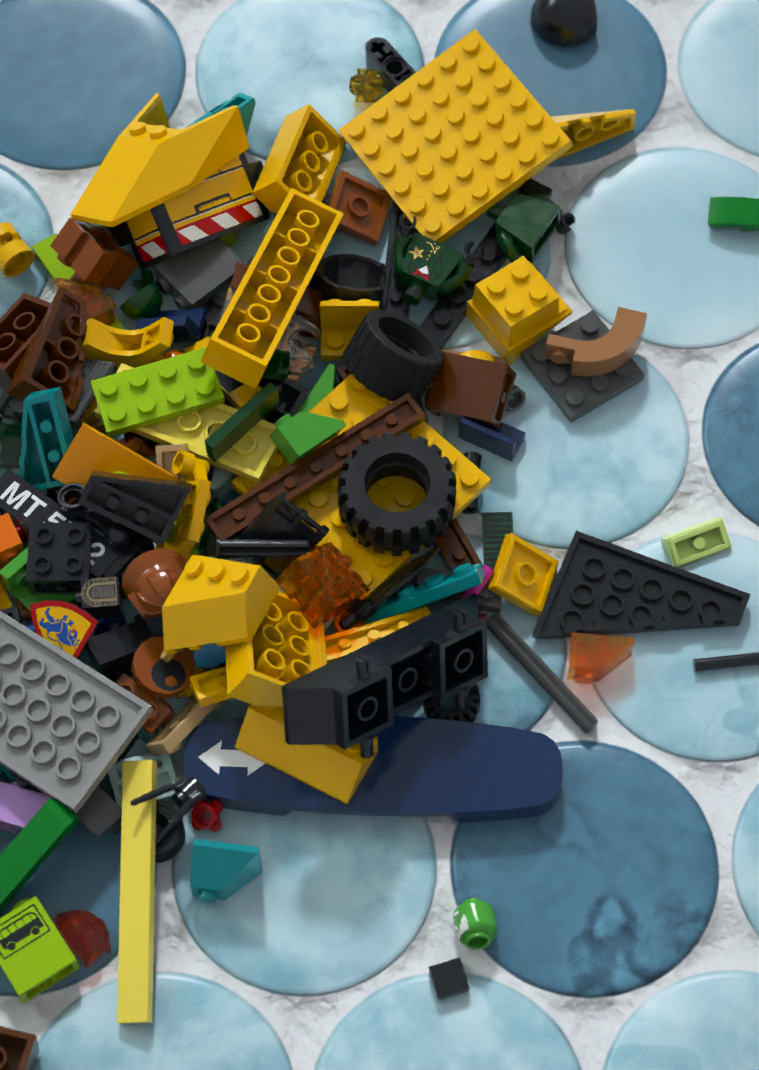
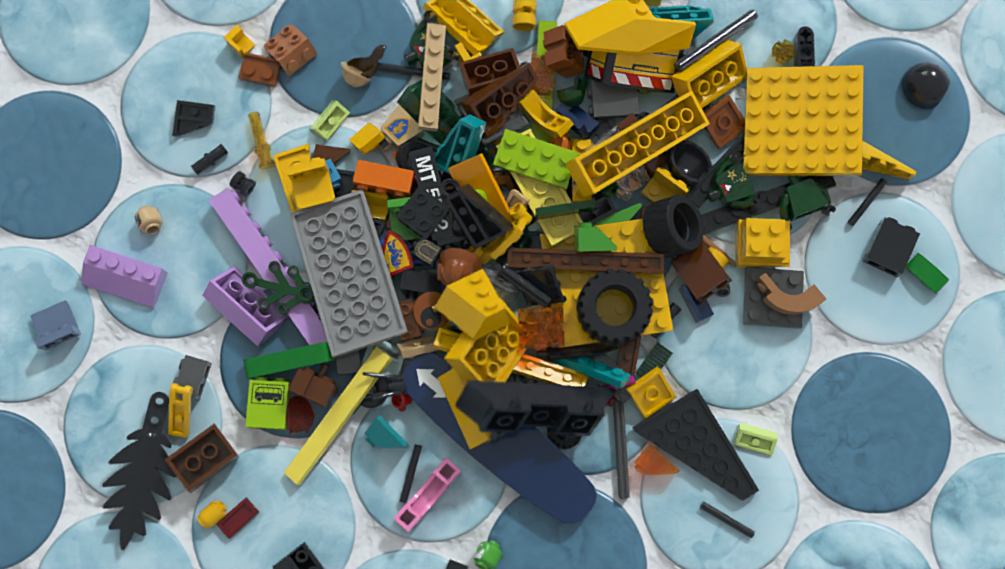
camera: 35 degrees right, 15 degrees up
(78, 877) = (315, 386): none -> reddish brown brick
(274, 124) = (715, 40): none -> black axle
(291, 900) = (410, 473): none -> black bar
(336, 903) = (427, 495): none -> bright pink arch
(604, 185) = (866, 203): none -> black bar
(675, 213) = (892, 247): none -> black panel

